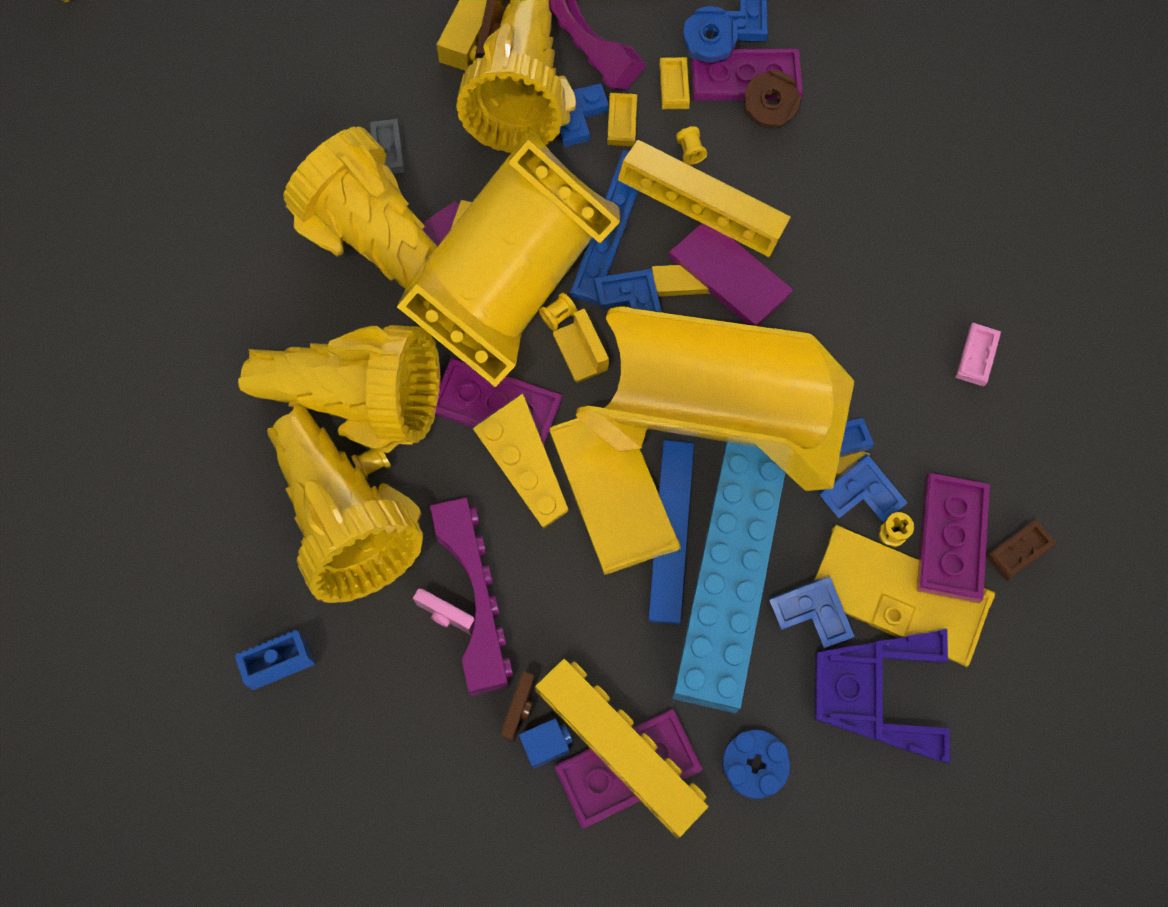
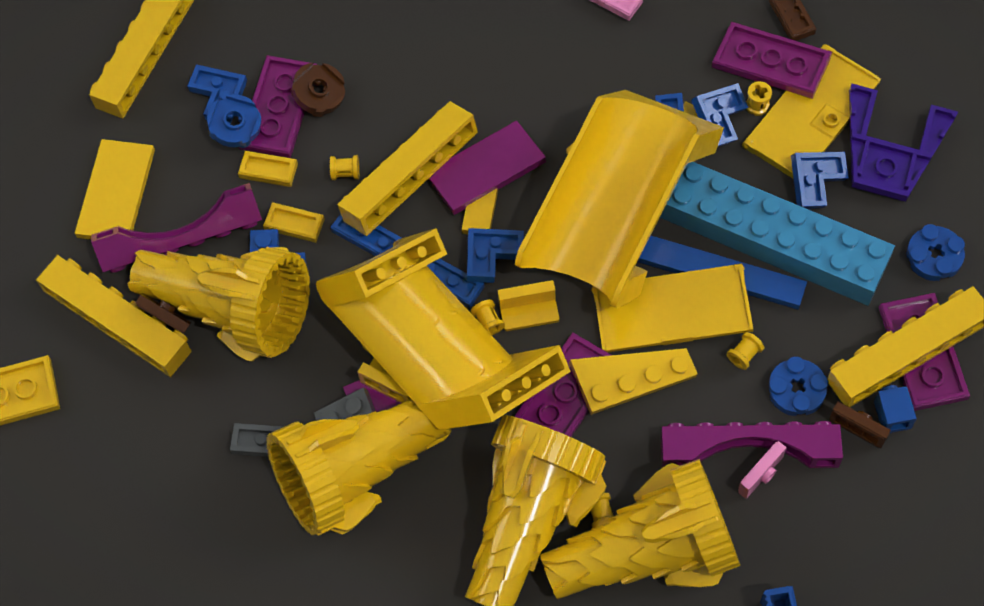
camera: 70 degrees left, 5 degrees down
(428, 208) = (351, 405): none -> dark grey plate
(546, 617) = (796, 371): none -> blue plate
(579, 570) = (745, 350): none -> yellow bush

